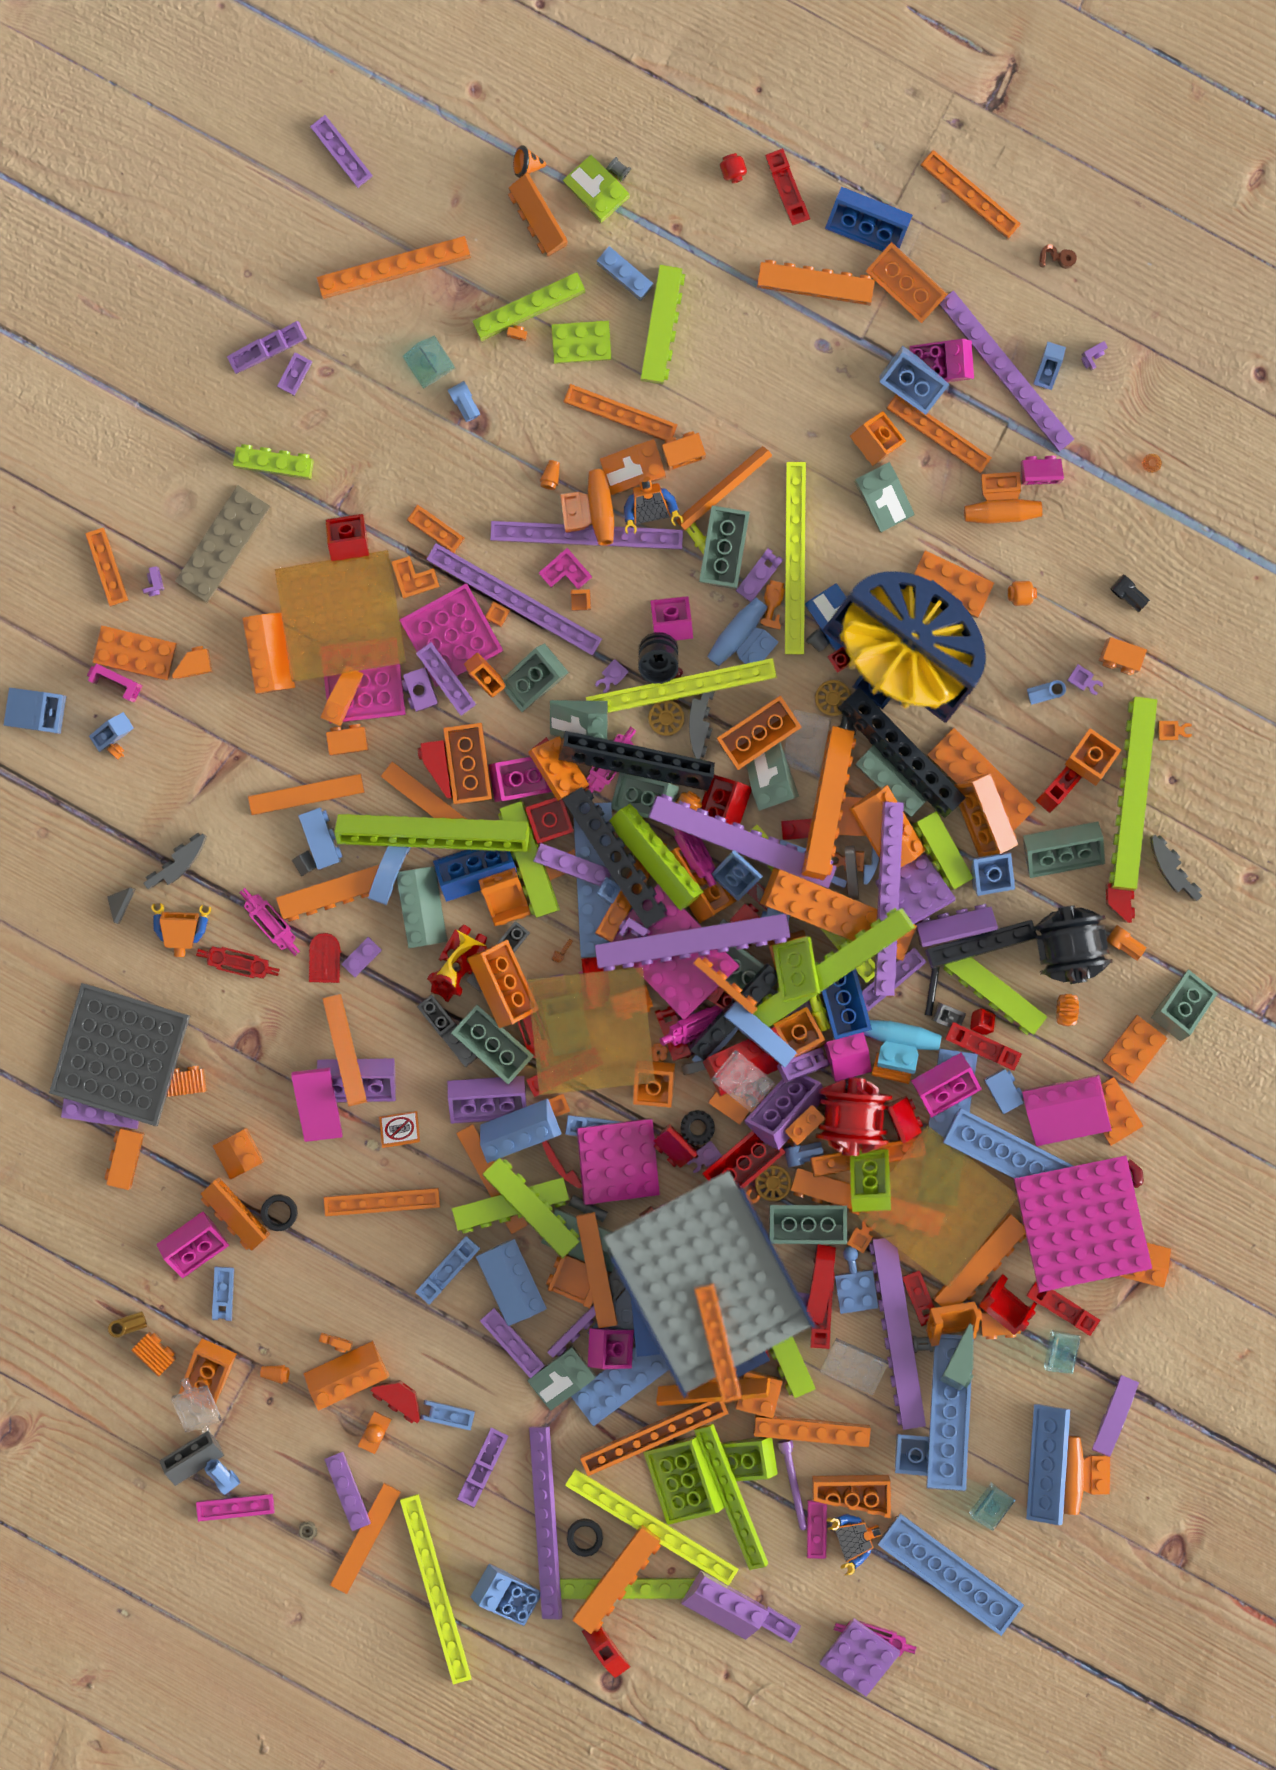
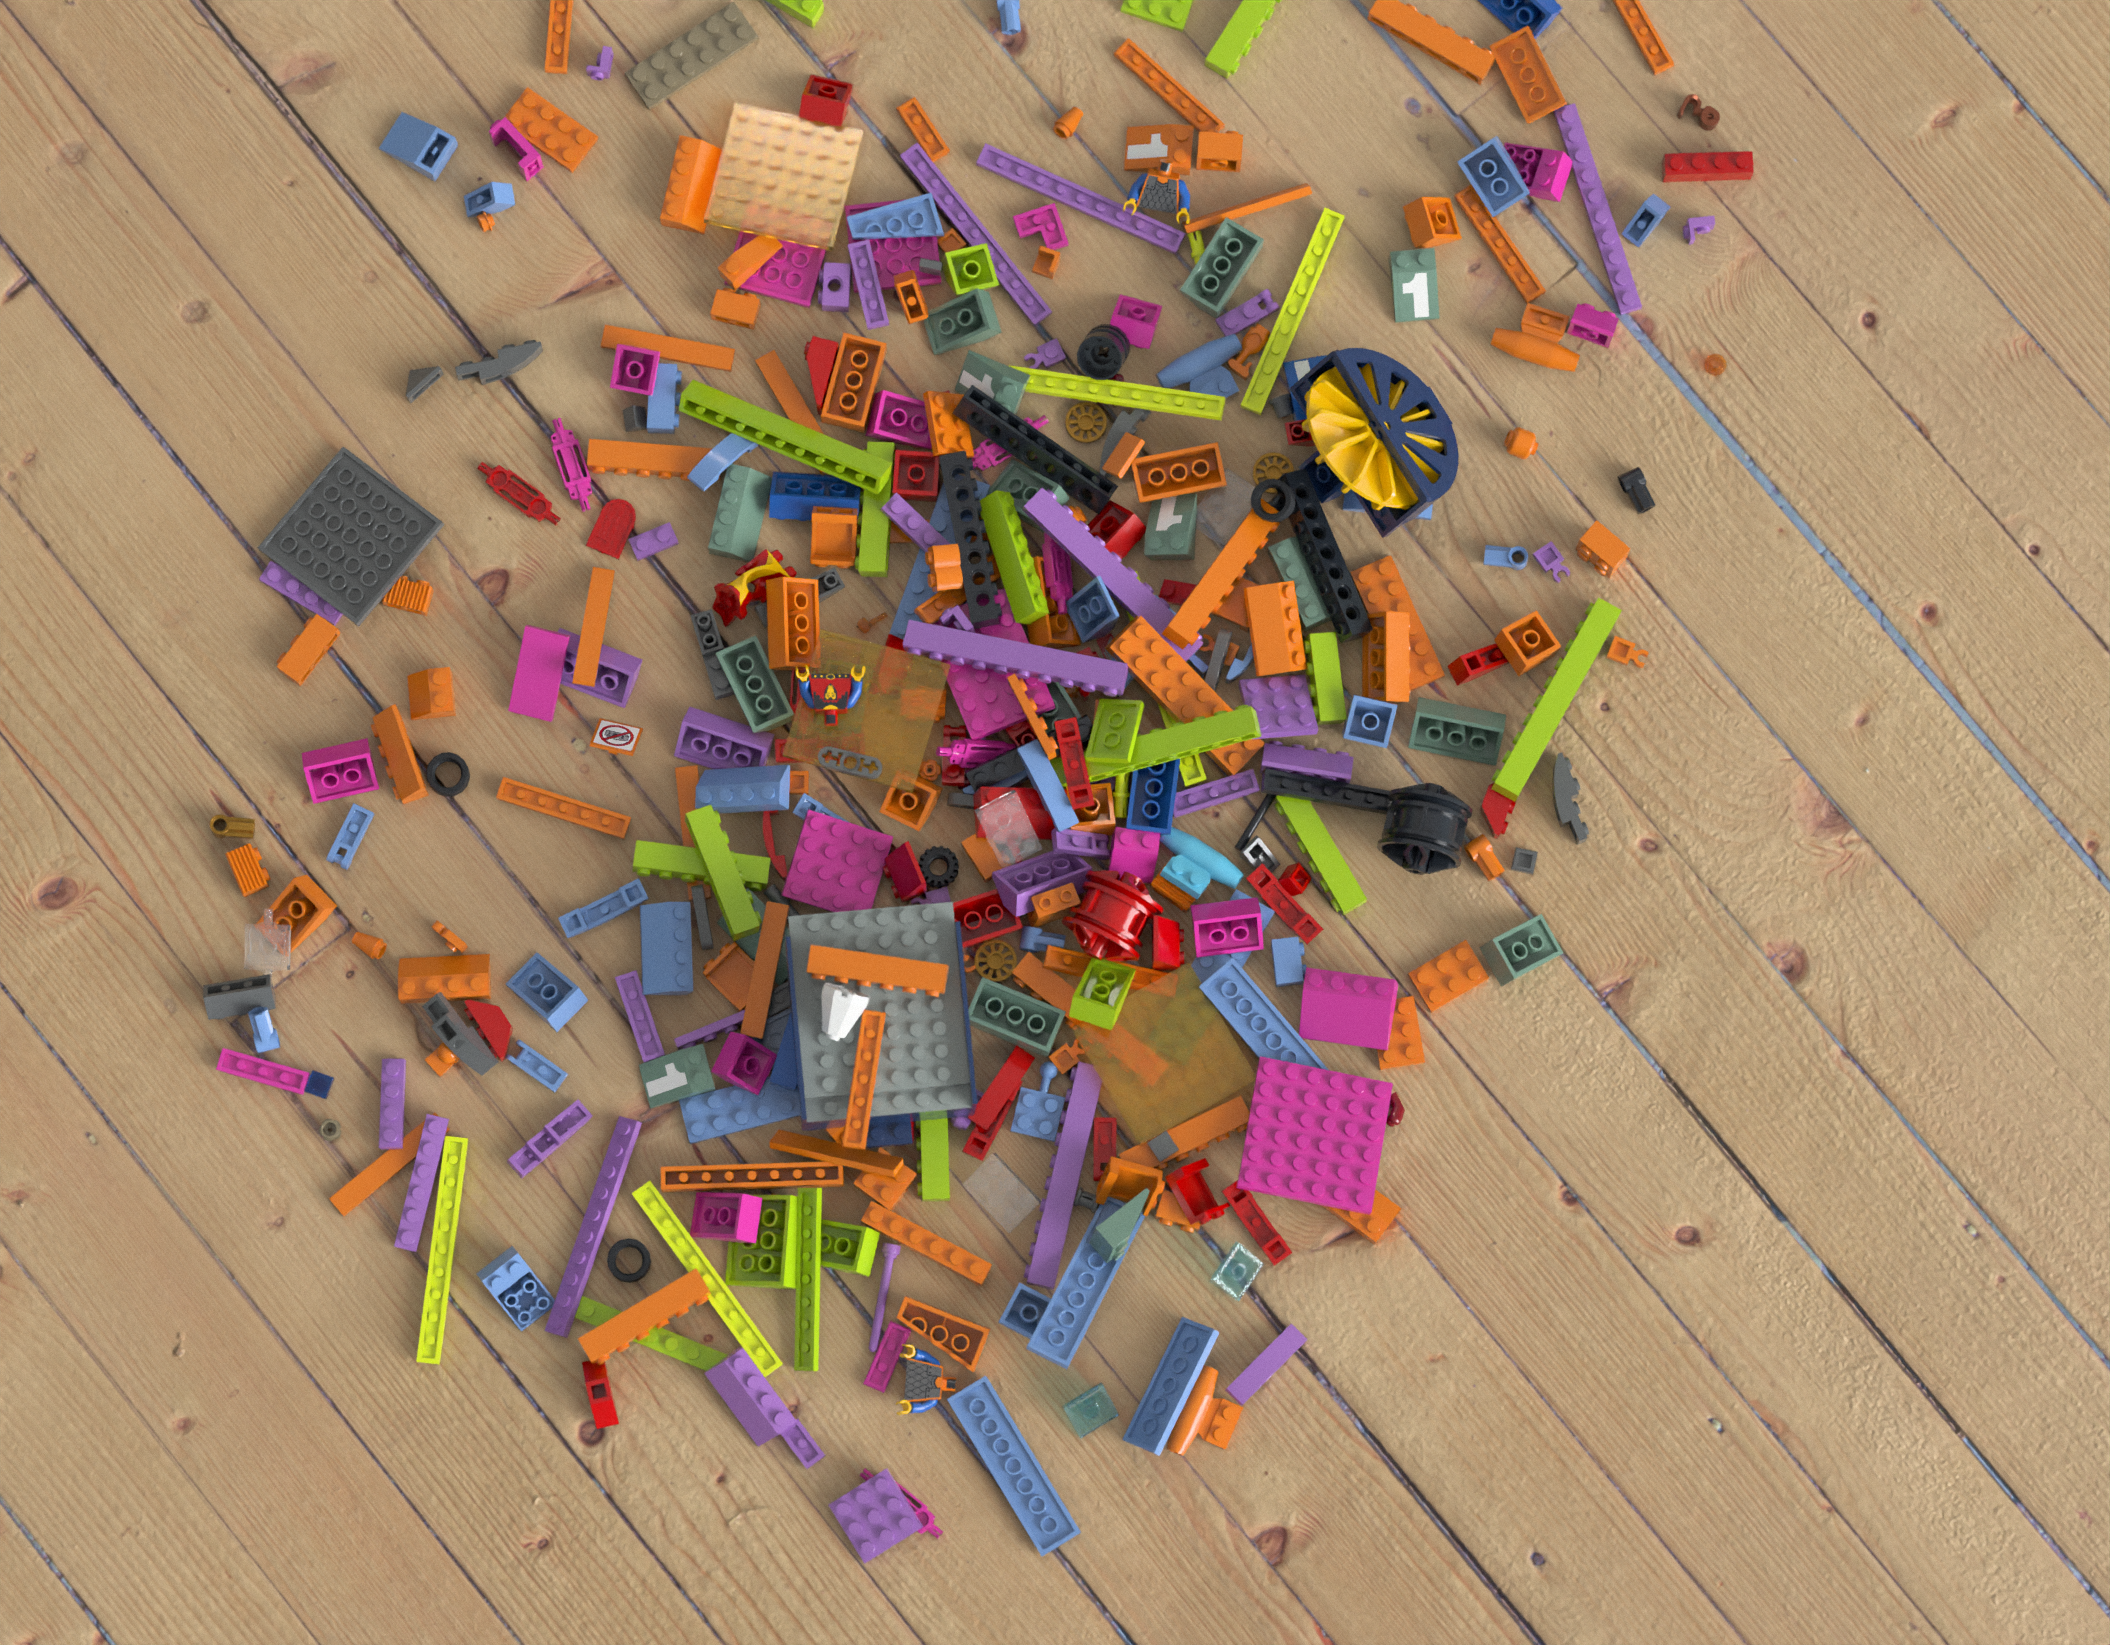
camera: 20 degrees right, 10 degrees down
(179, 929) = (472, 431): orange torso -> none
(194, 663) = (607, 165): orange slope -> none
(284, 1499) = (319, 1085): none -> clear blue plate
(288, 826) = (635, 369): none -> dark pink slope
(381, 1423) = (457, 1036): none -> dark grey slope
(397, 1543) = (421, 1182): none -> medium lavender plate
(413, 583) = (873, 174): orange plate -> none
(431, 1353) = (547, 992): none -> medium blue slope
(452, 612) = (898, 220): none -> medium blue wing
(491, 643) = (930, 267): none -> dark grey tile
(522, 633) = (969, 269): none -> lime slope
(528, 1245) = (702, 917): none -> dark grey beam
(557, 1032) = (830, 692): none -> torso
(592, 508) = (1101, 172): orange plate -> none
(606, 890) = (944, 568): none -> orange brick
(609, 1074) = (845, 754): none -> dark grey beam
(647, 1475) = (726, 1217): none -> dark pink slope
(678, 1297) = (841, 1009): none -> white cone
(693, 1253) = (877, 969): none -> orange brick
(709, 737) = (1123, 455): none -> orange tile
(775, 1009) = (1074, 763): none -> red slope
(859, 727) = (1256, 500): none -> black tyre
(888, 892) = (1248, 692): medium lavender plate -> none
(961, 583) = (1467, 415): orange plate -> none
(966, 1281) = (1163, 1146): none -> dark grey tile
(1067, 1009) = (1391, 901): orange gear -> none
(1082, 300) = (1707, 166): none -> red brick
(1158, 932) = (1524, 861): none -> dark grey tile

